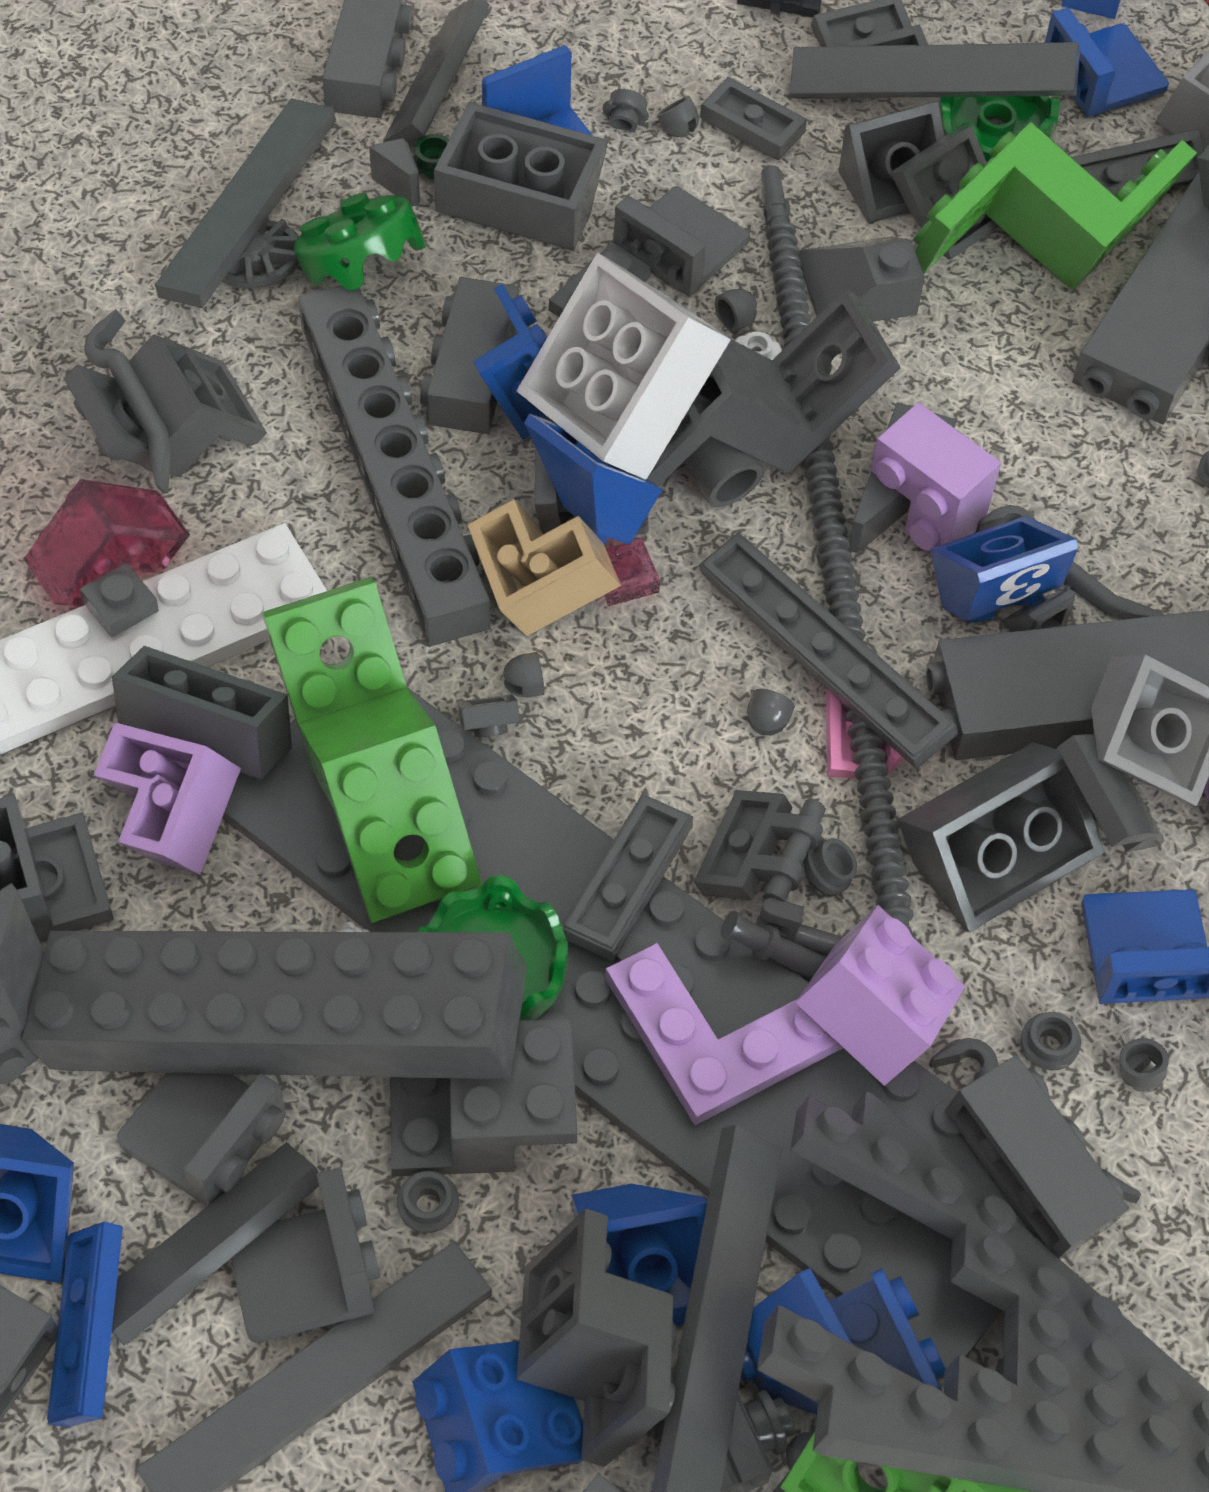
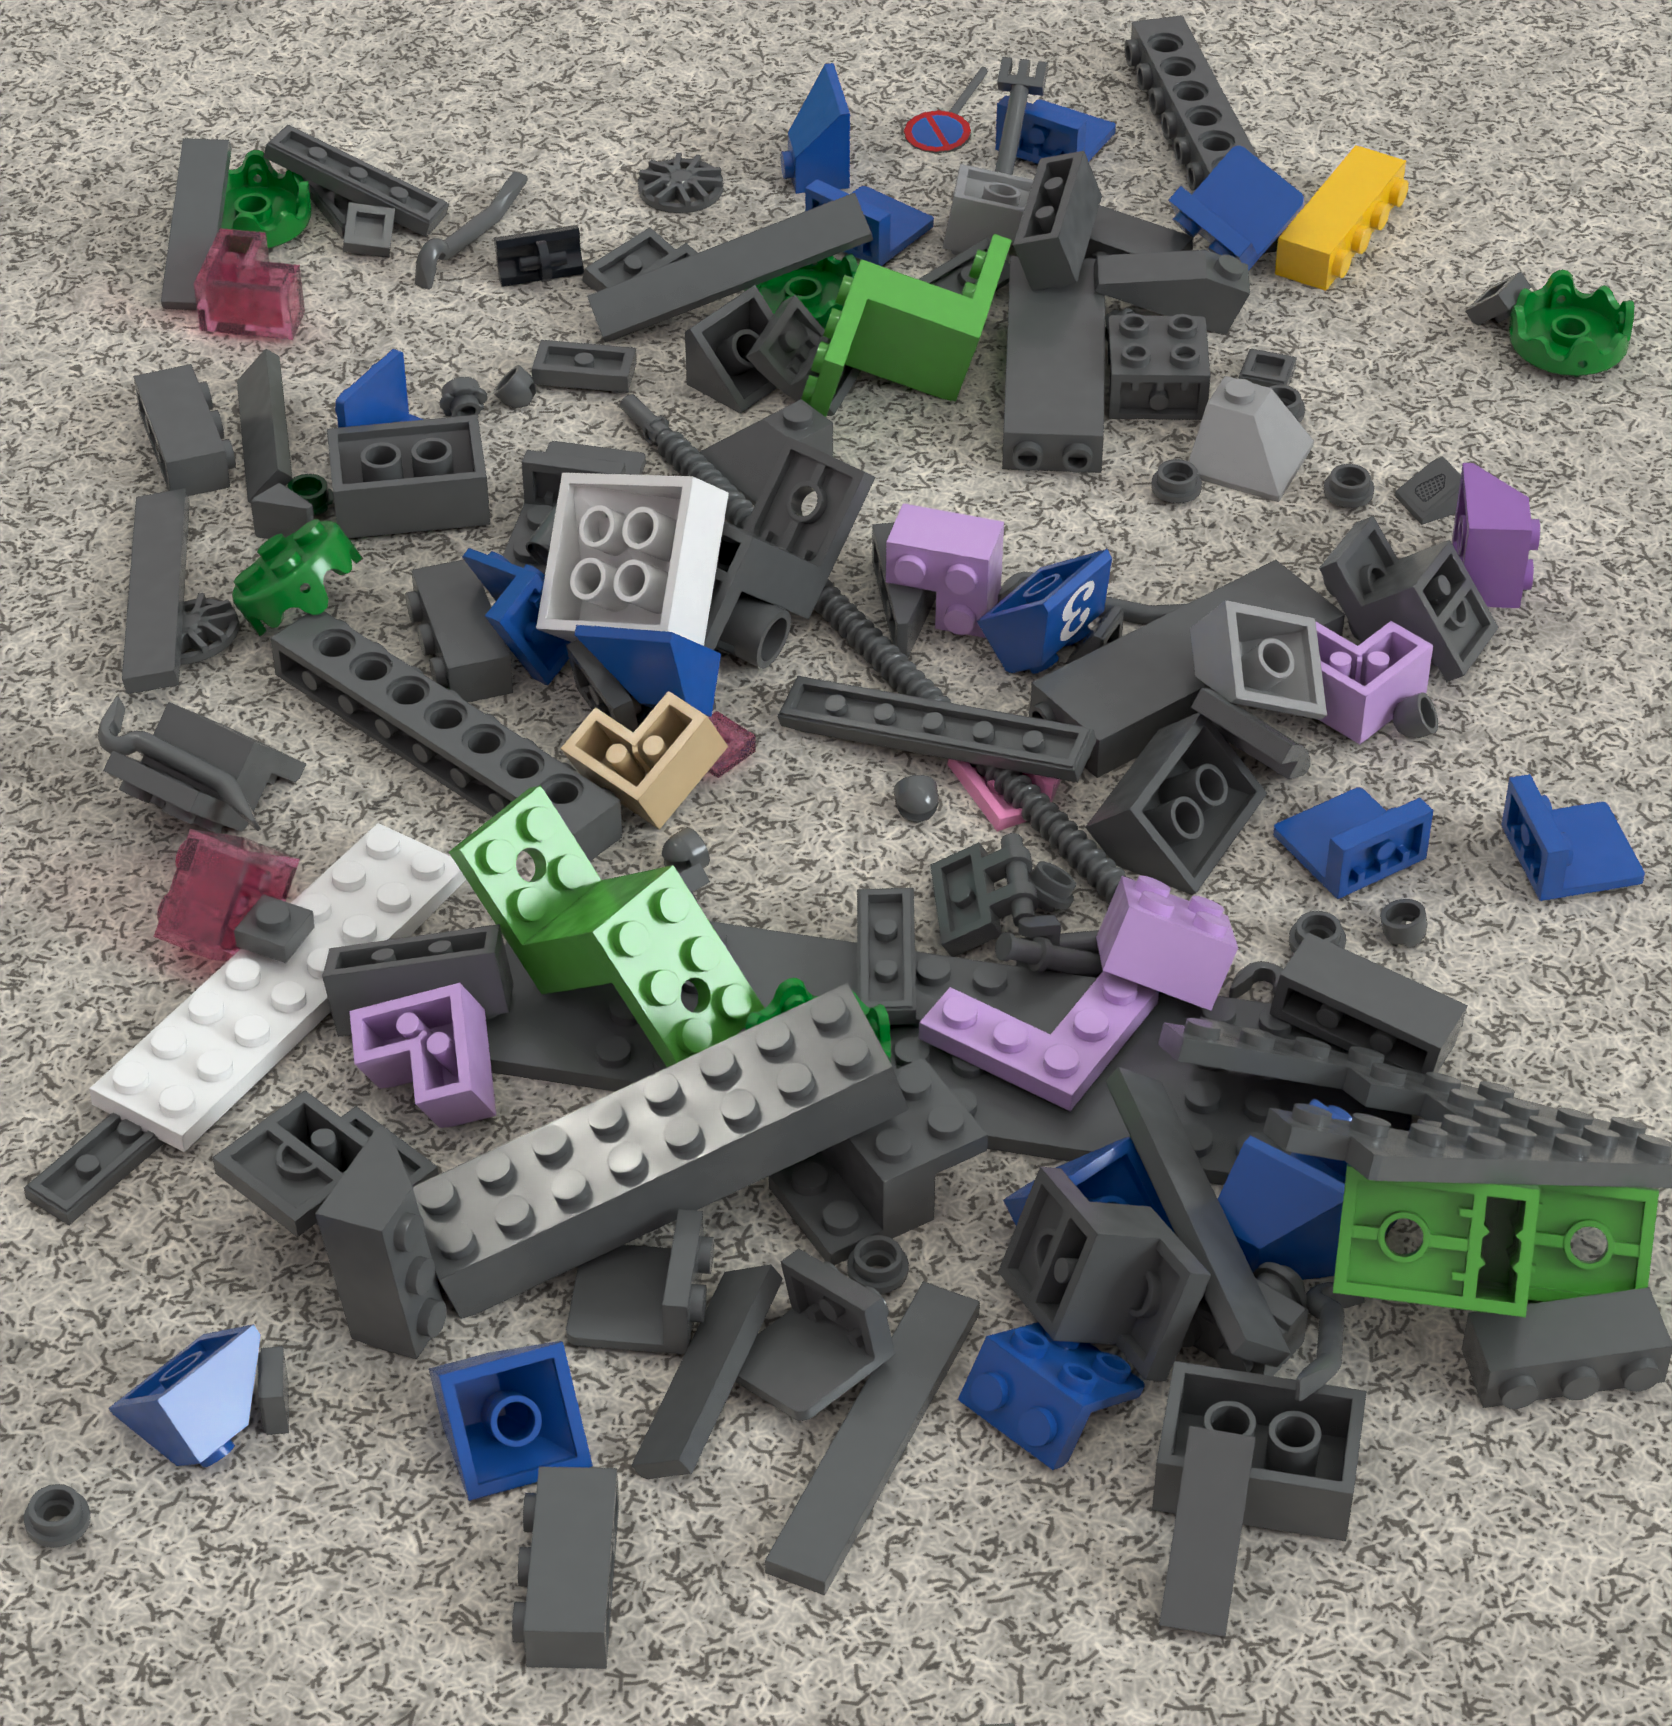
camera: 25 degrees left, 15 degrees down
(85, 1325) = (647, 1472): blue tile -> none

